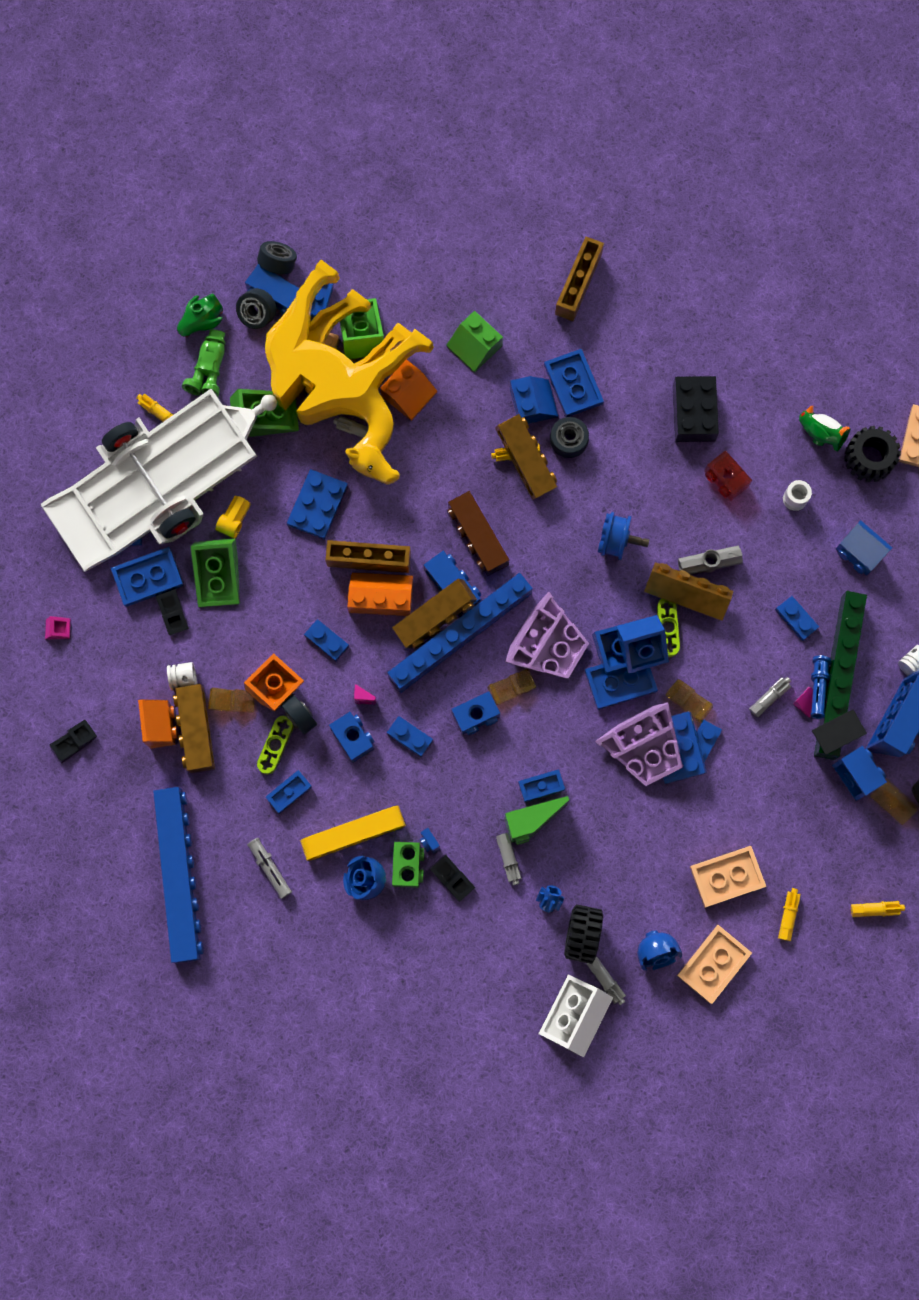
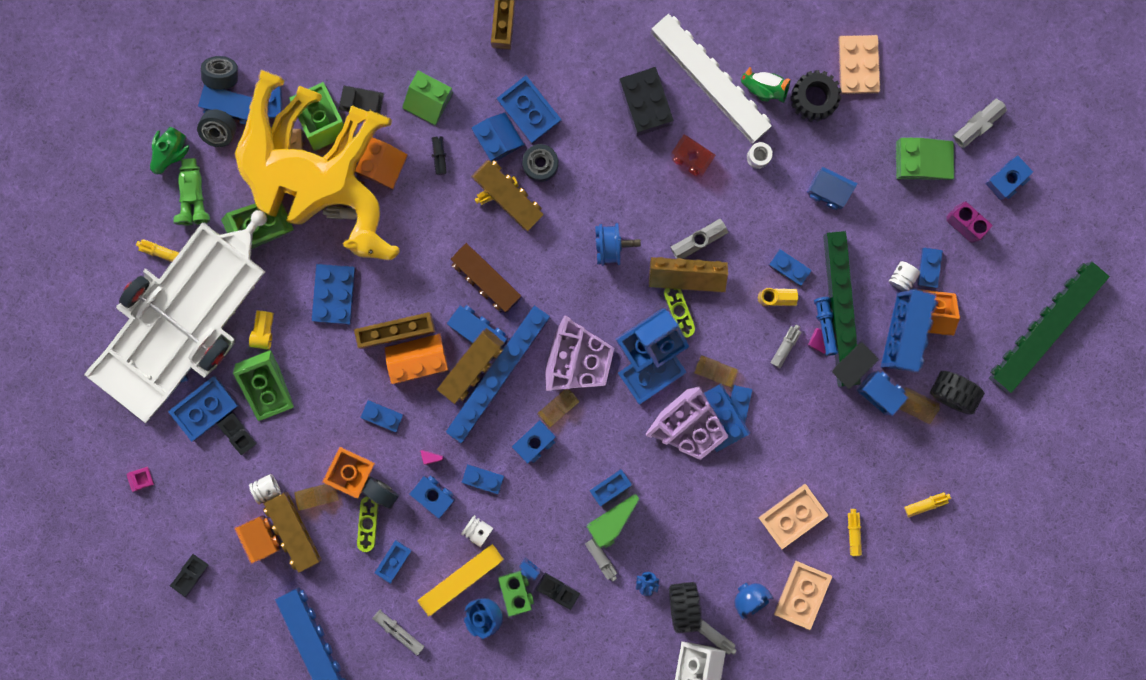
camera: 20 degrees left, 10 degrees up
(387, 786) = (474, 527): none -> white piece
(406, 321) = (361, 98): none -> black piece
(468, 400) = (439, 155): none -> black axle
(768, 407) = (710, 78): none -> white brick
(778, 643) = (780, 297): none -> yellow piece

